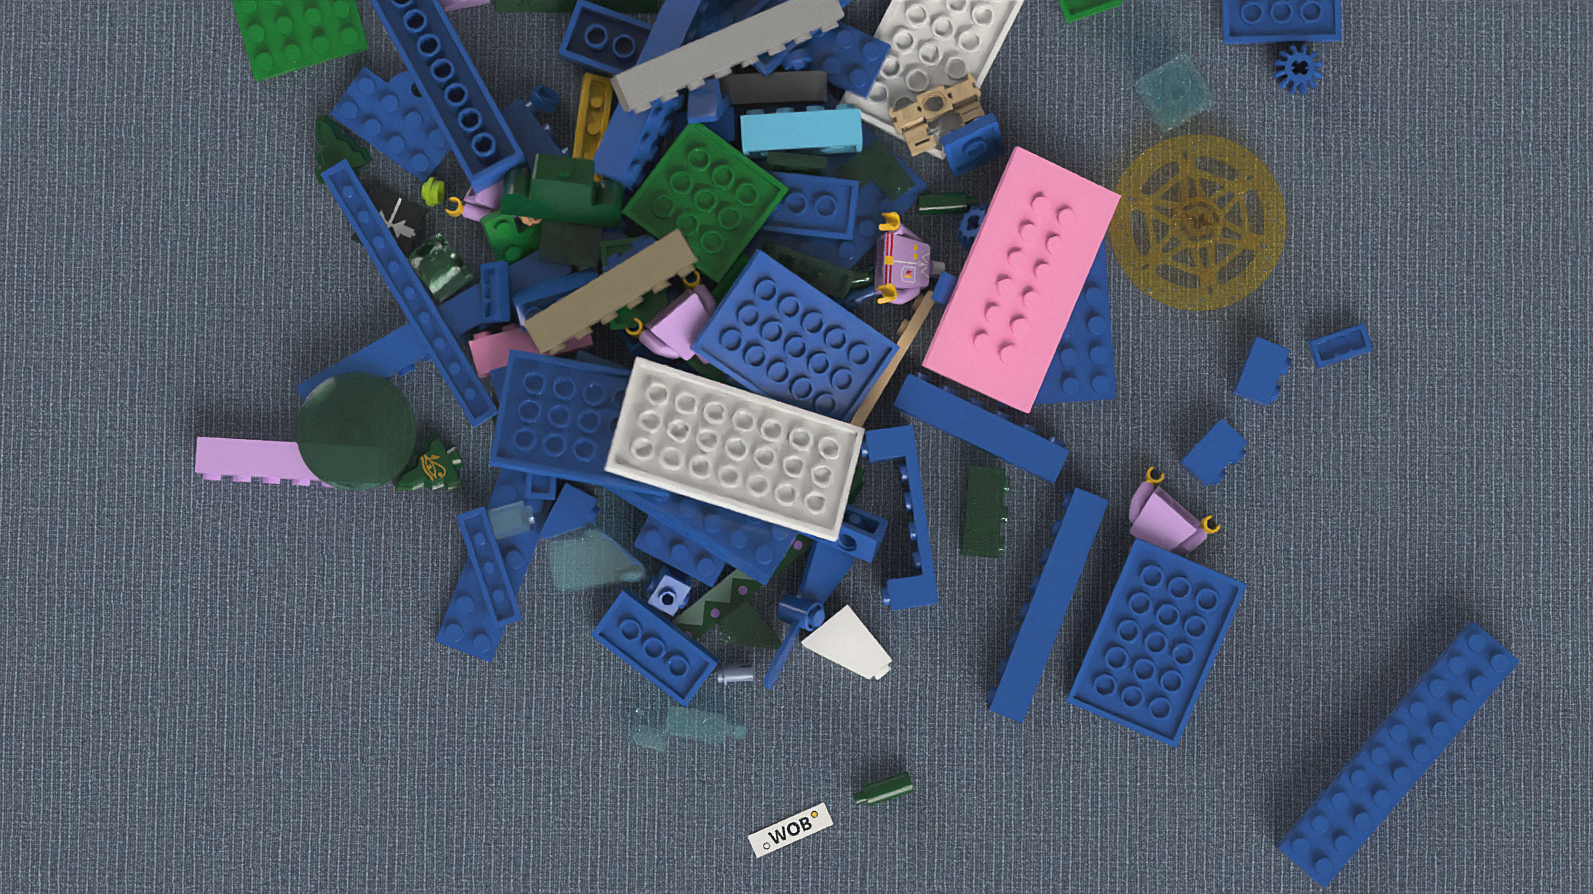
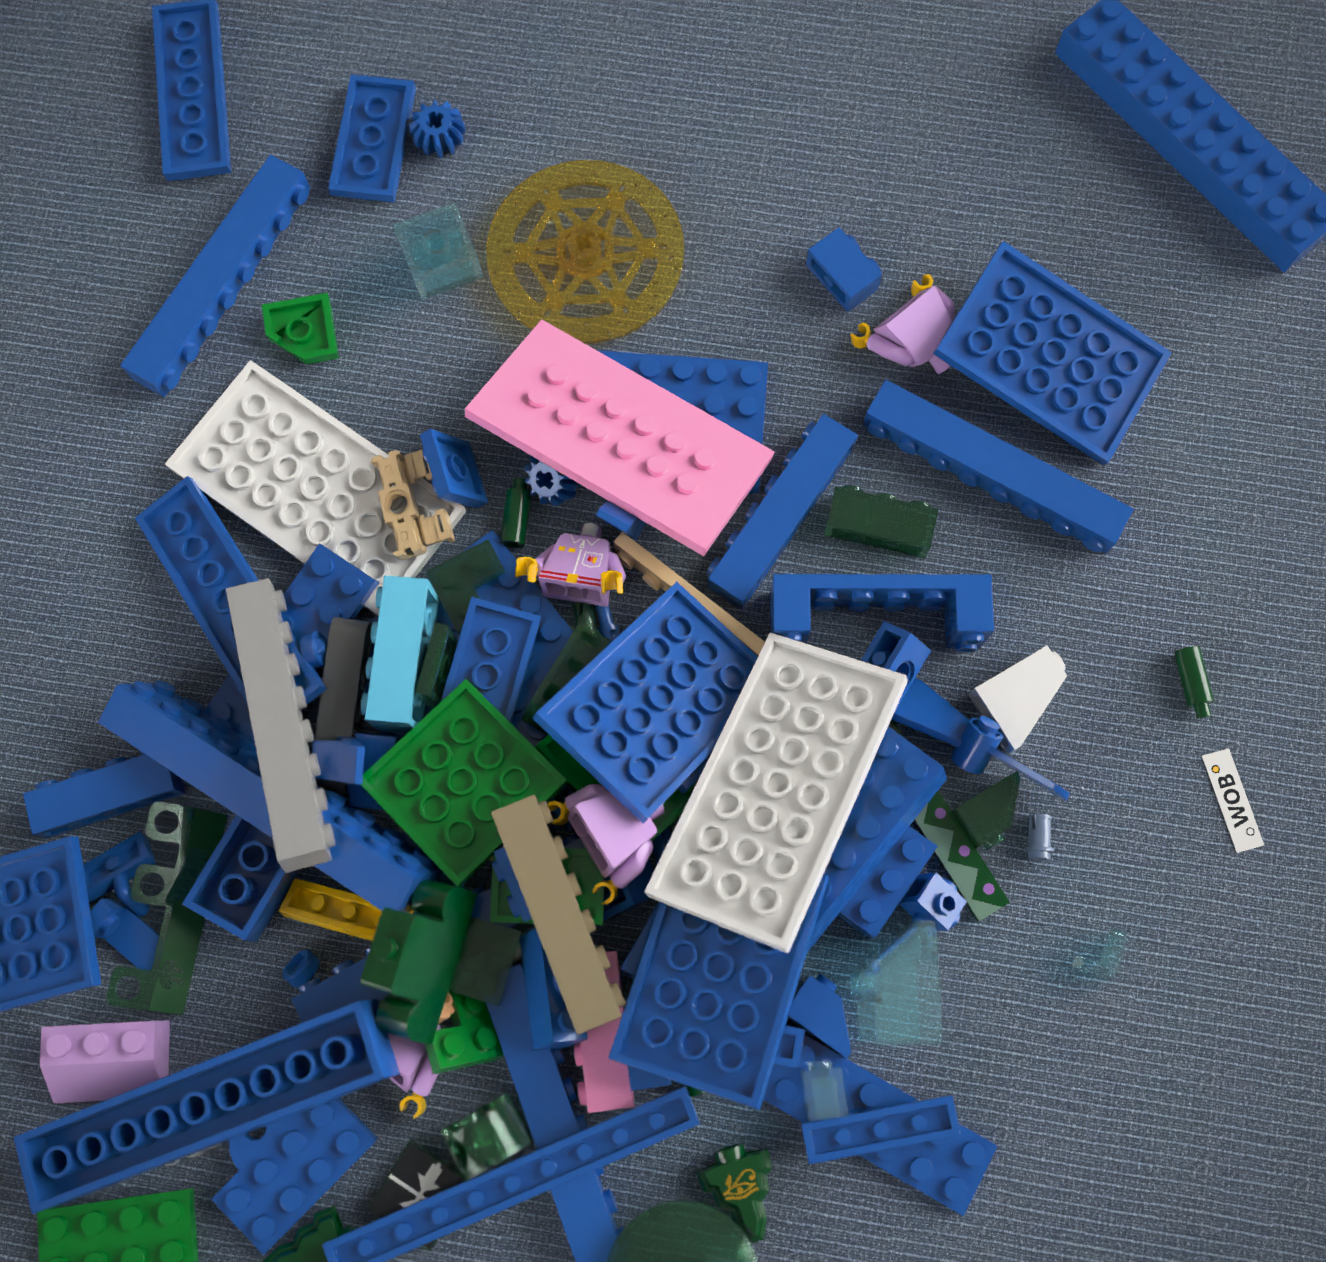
camera: 75 degrees left, 10 degrees down
(433, 192) = (389, 1130): lime plate -> none
(495, 292) = (531, 1067): blue plate -> none
(655, 647) = (1002, 929): blue plate -> none
(701, 725) = (1101, 887): clear light blue plate -> none
(1261, 372) = (760, 208): blue brick -> none
(1340, 345) = (743, 129): blue plate -> none

